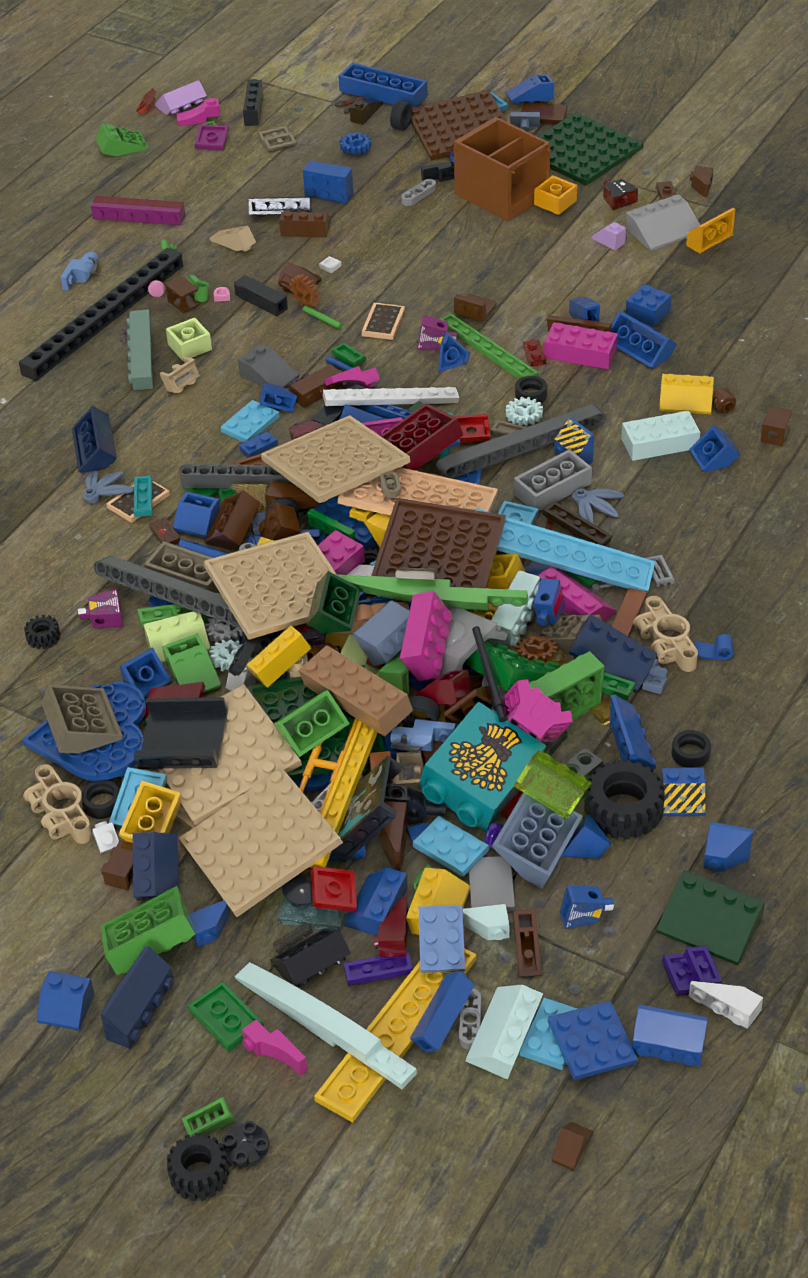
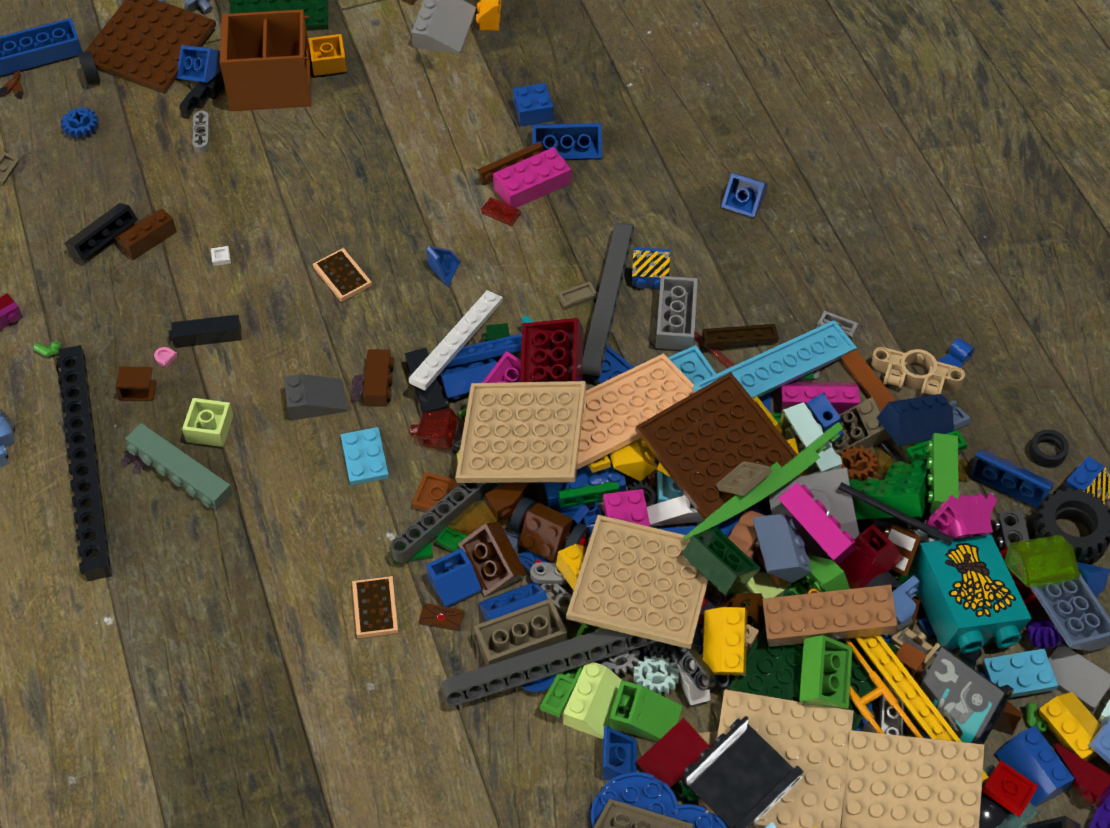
camera: 50 degrees left, 10 degrees up
(42, 639) = (473, 787): black tyre -> none
(93, 441) = (260, 588): dark blue slope -> none
(95, 488) = (328, 617): sand blue plant -> none
(103, 610) = (500, 731): magenta torso -> none
(143, 496) = (381, 600): teal tile -> none
(156, 288) = (99, 397): bright pink tile -> none
(180, 376) = (255, 462): tan window -> none
(203, 288) = (144, 361): bright green piece -> none
(235, 238) = (103, 293): tan slope -> none
(258, 444) = (402, 471): blue plate -> none
(277, 397) = (361, 415): blue slope -> none
(290, 272) = (219, 291): reddish brown slope -> none
(304, 290) = (248, 297): dark orange gear -> none
(313, 312) = (285, 310): bright green bar -> none
(328, 182) = (116, 177): blue brick -> none
(338, 364) = (373, 342): blue bar -> none
(348, 355) = (360, 328): green plate -> none
(355, 376) = (408, 338): dark pink slope -> none
(363, 109) = (39, 84): dark brown slope -> none
(390, 484) = (600, 418): dark tan plate -> none
(432, 333) = (408, 256): magenta torso -> none
(473, 306) = (401, 205): reddish brown bracket -> none
(479, 423) = (551, 306): red piece -> none
(488, 348) = (459, 235): bright green tile -> none
(524, 411) = (569, 269): light aqua gear -> none
(531, 382) = (547, 257): black tyre -> none
(584, 309) = (496, 144): blue slope -> none
(586, 498) = (715, 308): sand blue plant -> none
(611, 236) = (416, 62): lavender slope -> none
(619, 193) = (371, 18): clear red torso -> none
(660, 435) = (693, 211): light aqua brick -> none
(686, 393) = (662, 161): yellow slope -> none
(723, 400) = (693, 147): reddish brown head -> none
(775, 426) = (761, 140): reddish brown piece -> none

